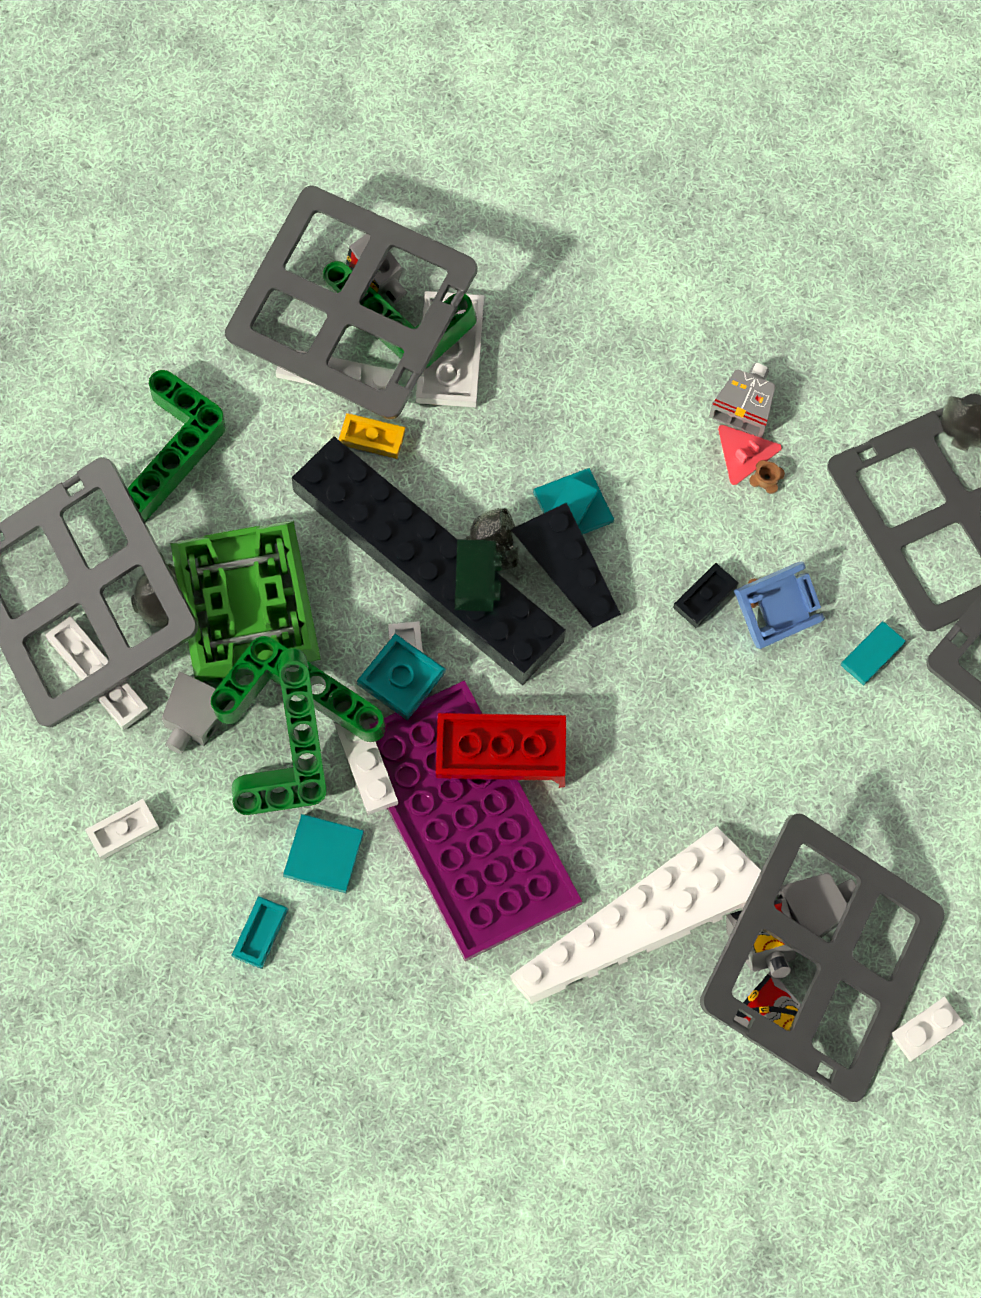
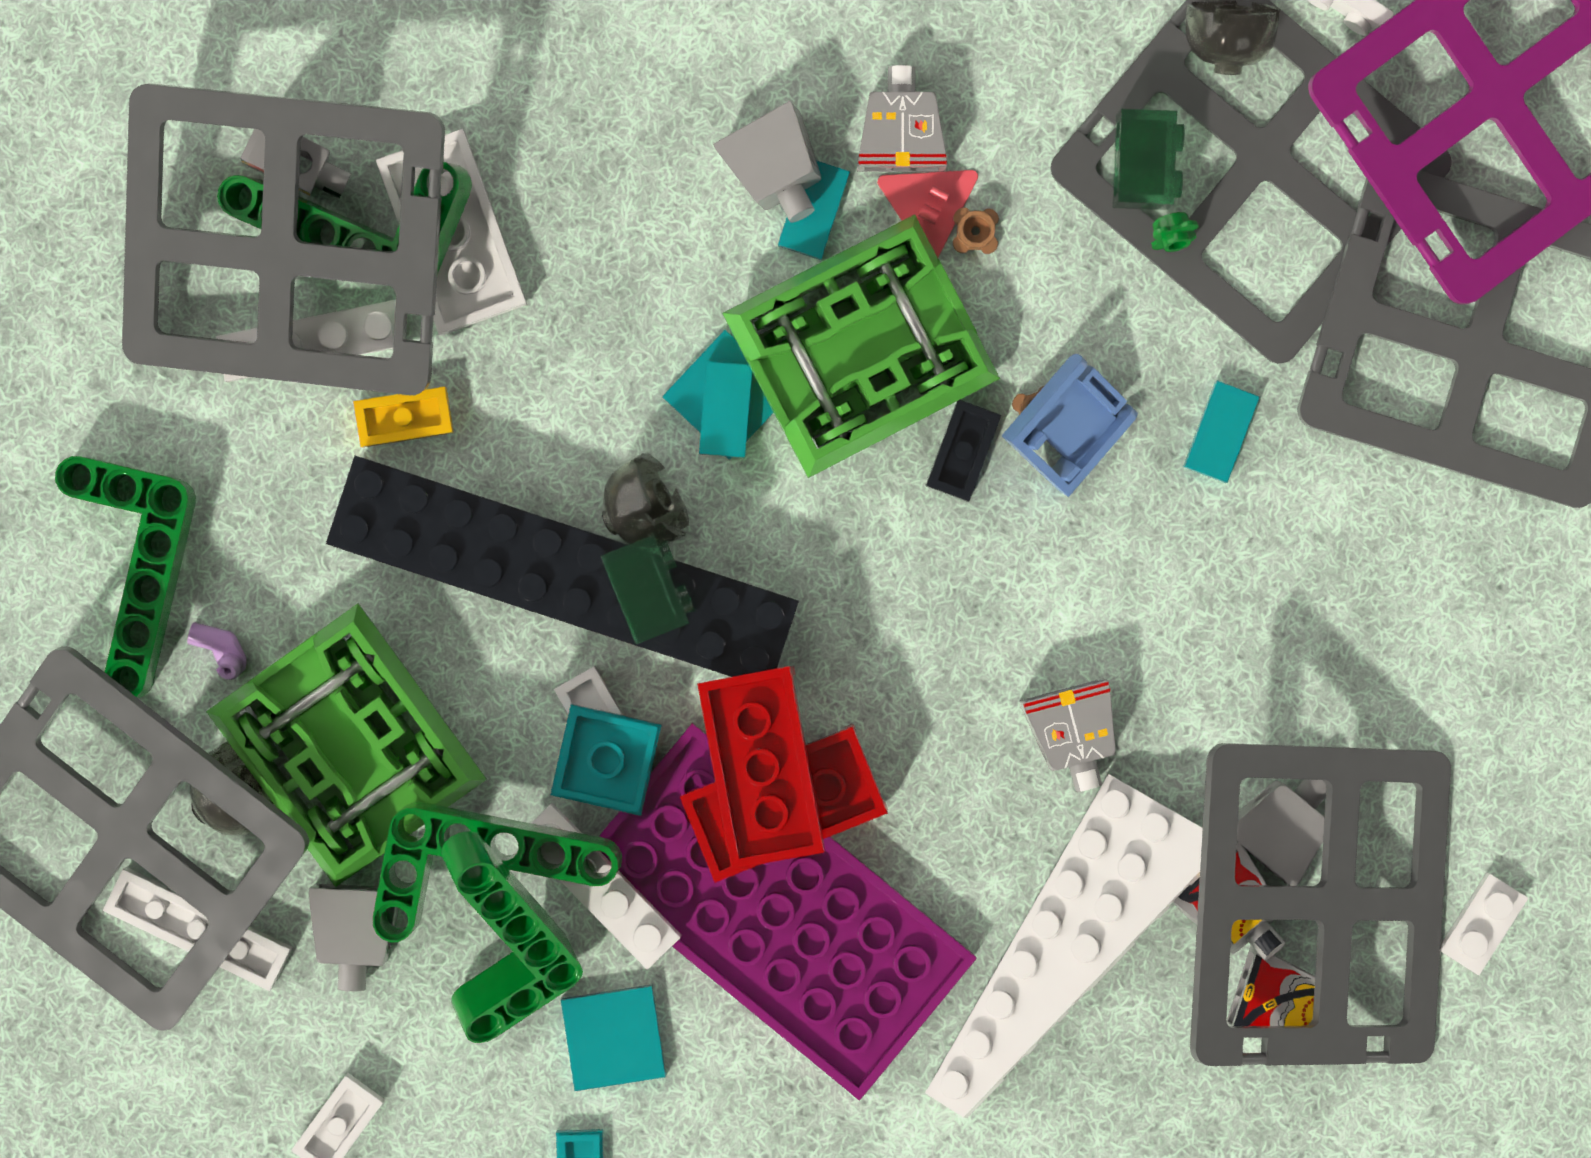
camera: 20 degrees left, 20 degrees up
(197, 518) = (224, 647): none -> lavender arm
(498, 710) = (761, 767): none -> red plate
(566, 558) = (751, 487): black wing -> none
(661, 383) = (774, 160): none -> light grey torso
(669, 514) = (861, 345): none -> bright green piece
(673, 425) = (812, 233): none -> teal tile
(705, 786) = (1074, 729): none -> light grey torso
(888, 474) = (1147, 159): none -> clear green brick
(890, 521) = (1173, 232): none -> green plate

